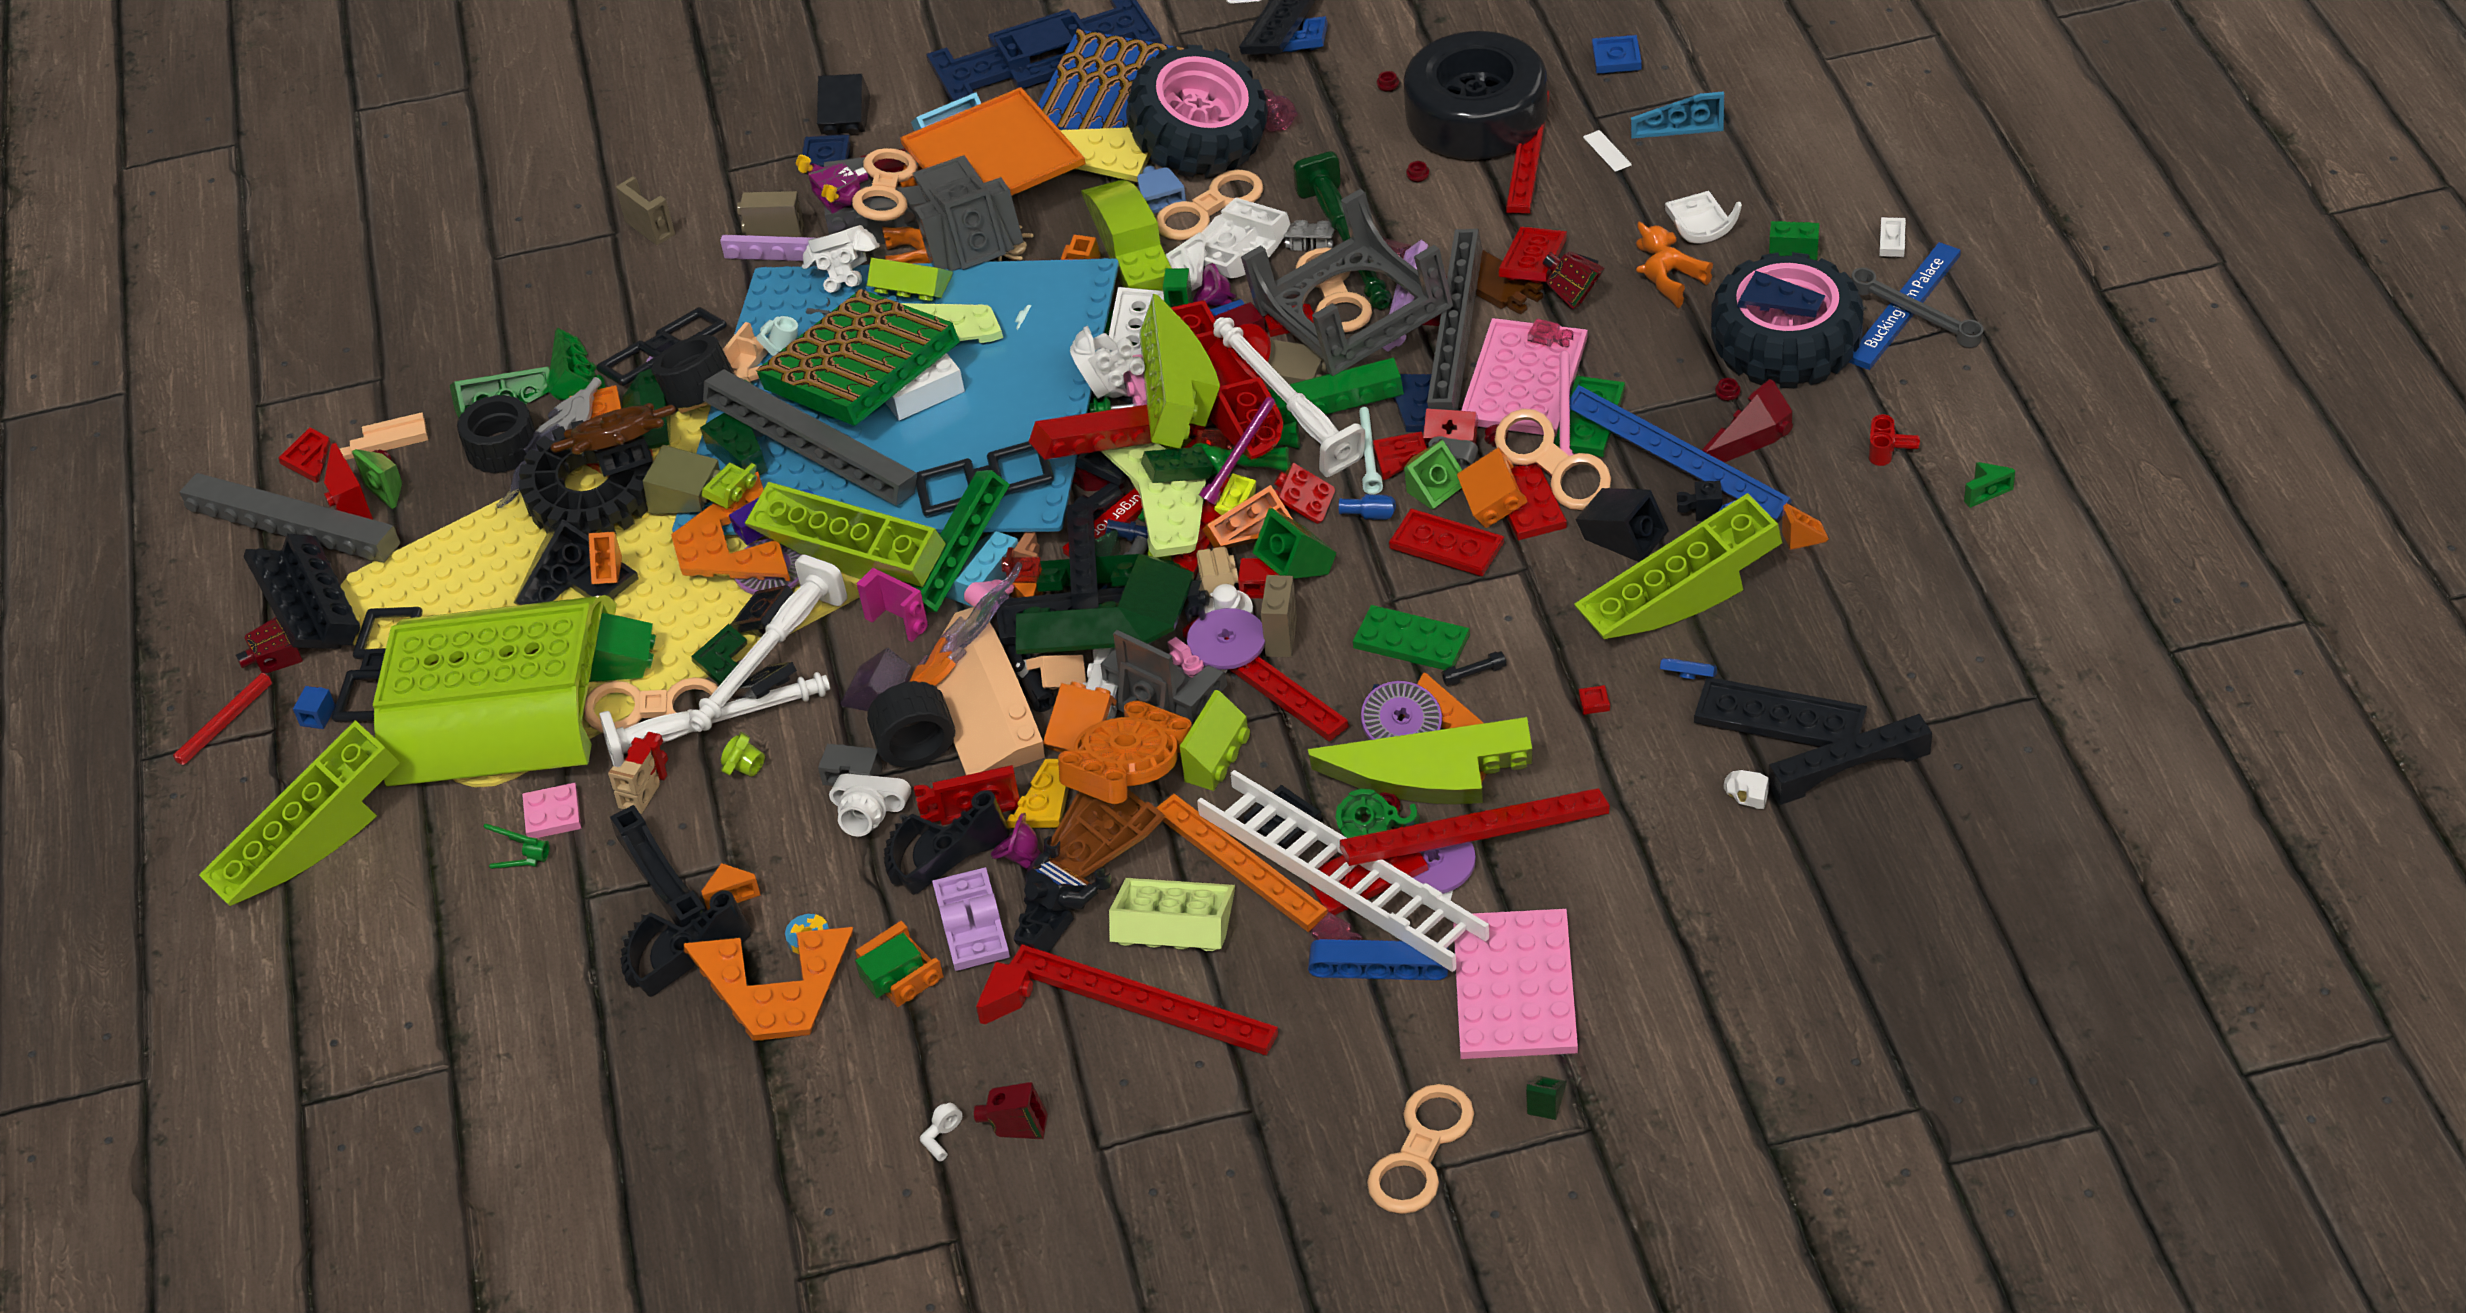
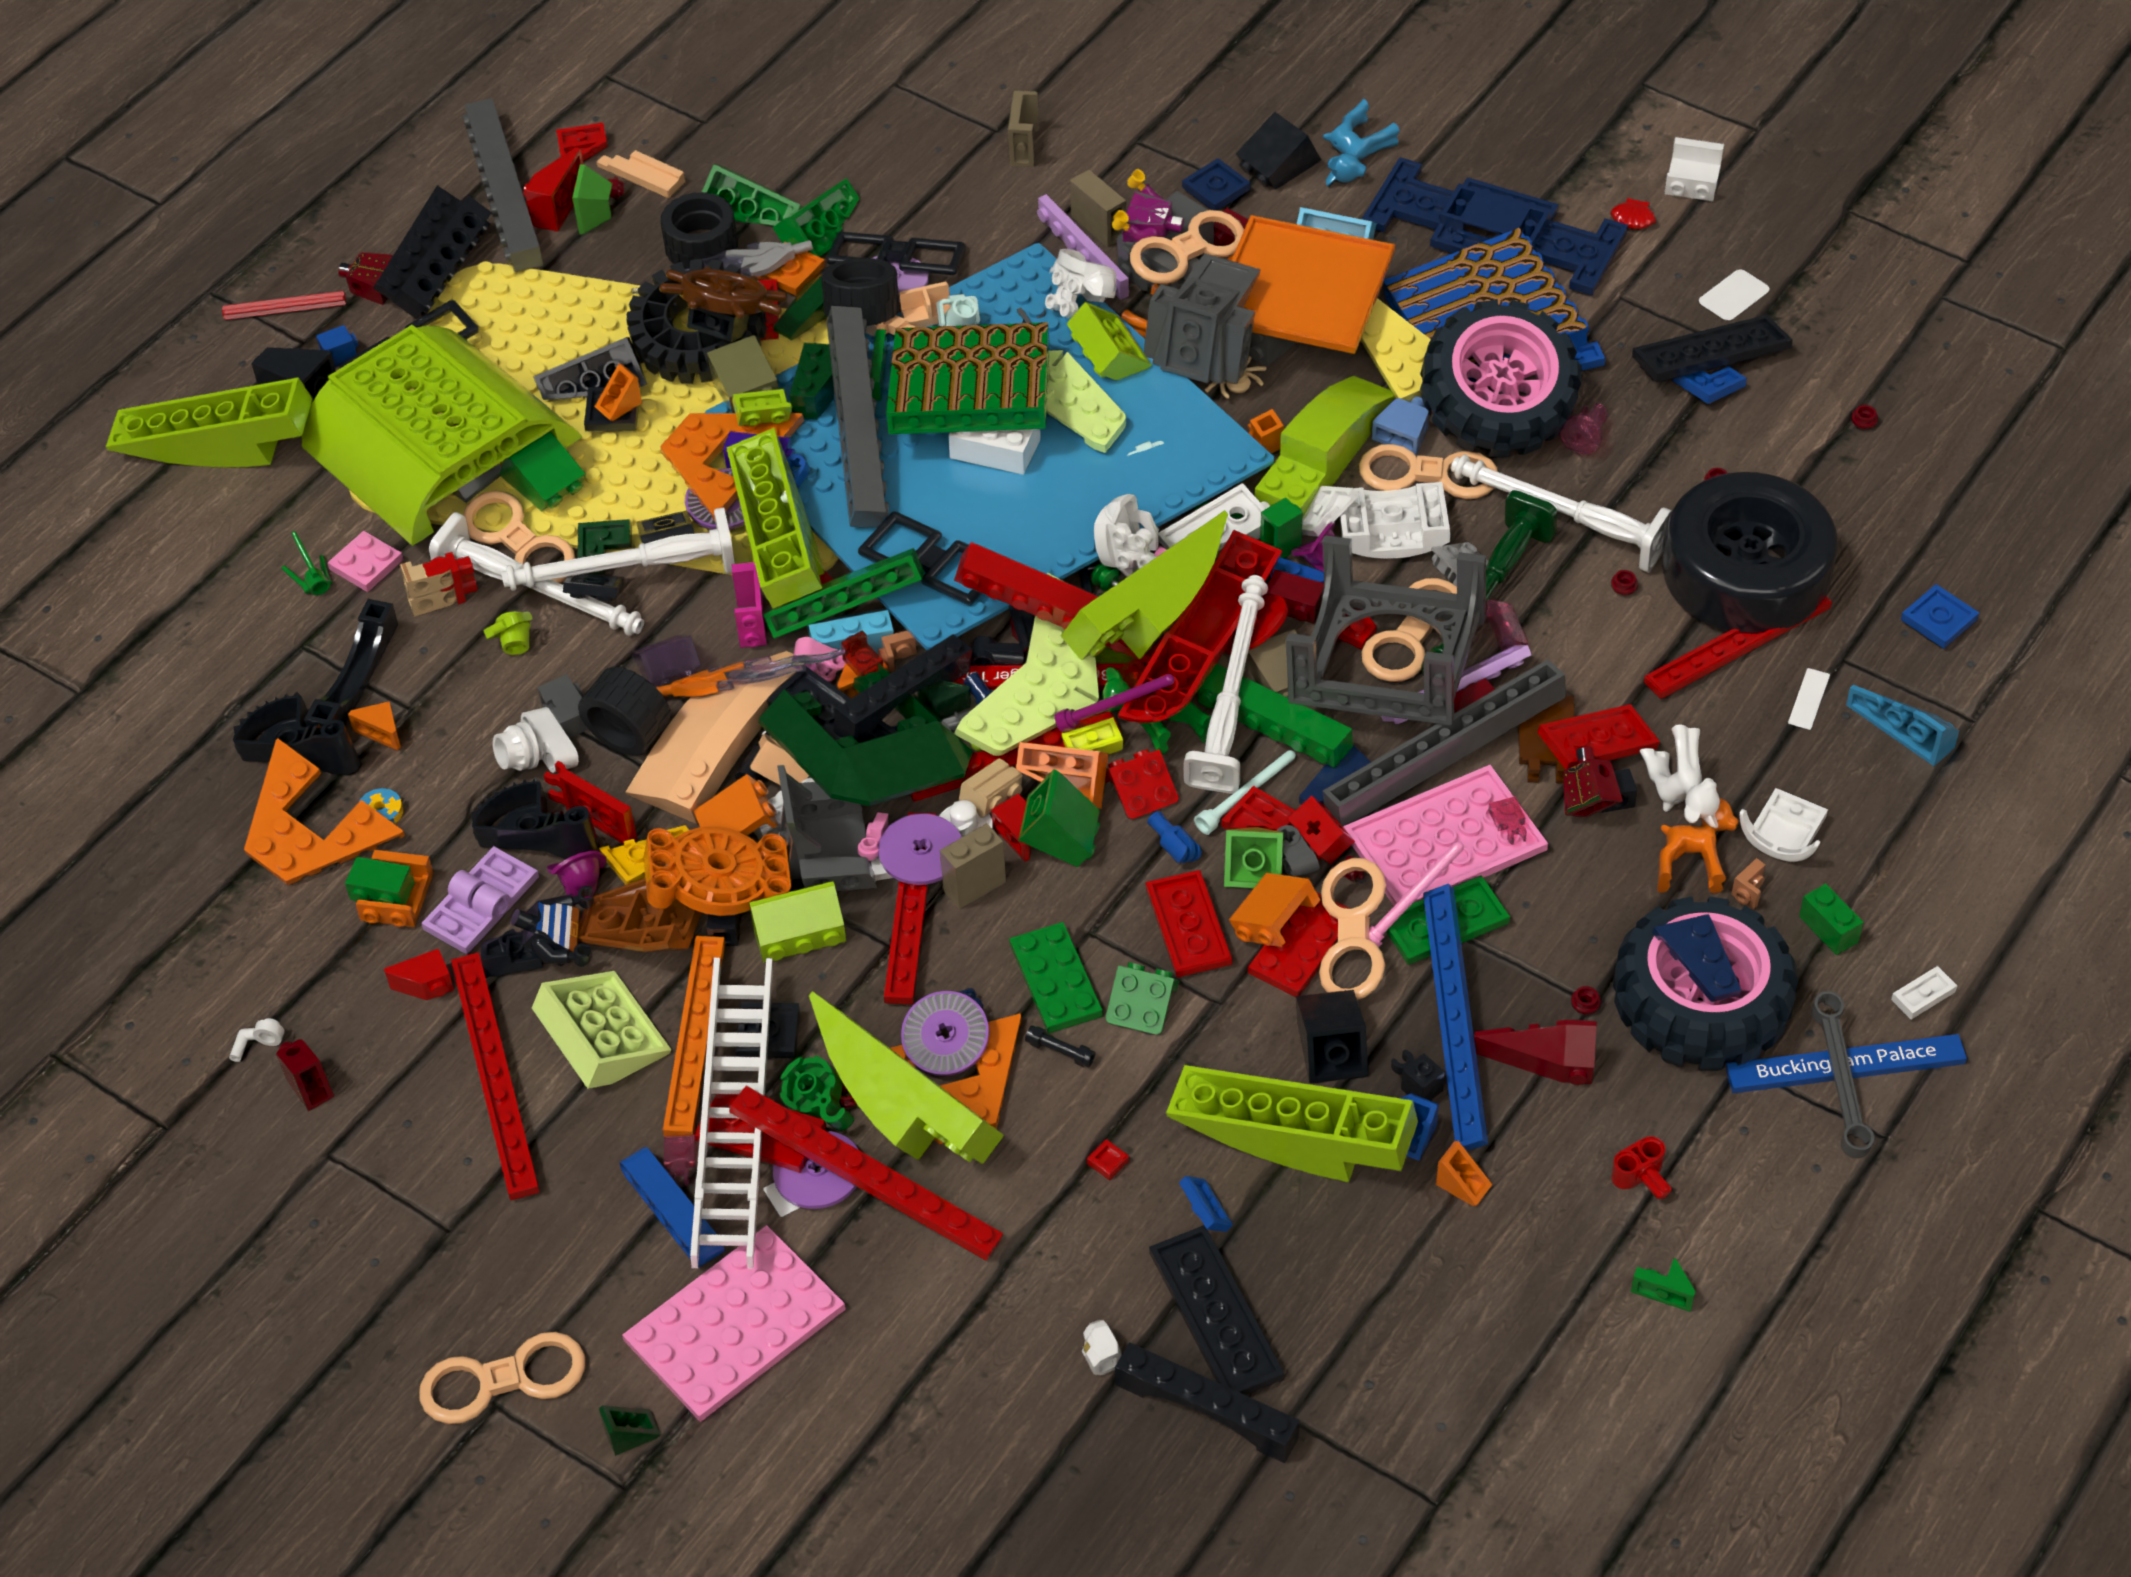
camera: 45 degrees right, 5 degrees up
(311, 737) = (287, 363): none -> black slope
(878, 69) = (1353, 148): none -> dark azure animal
(1161, 789) = (724, 926): none -> black brick
(1176, 464) = (1071, 673): dark green piece -> none
(1198, 600) = (939, 800): black plate -> none
(1404, 133) = (1606, 521): none -> white piece
(1483, 601) = (1140, 998): none -> bracket
(1646, 232) = (1686, 784): none -> white animal
(1723, 260) = (1747, 884): none -> nougat bracket

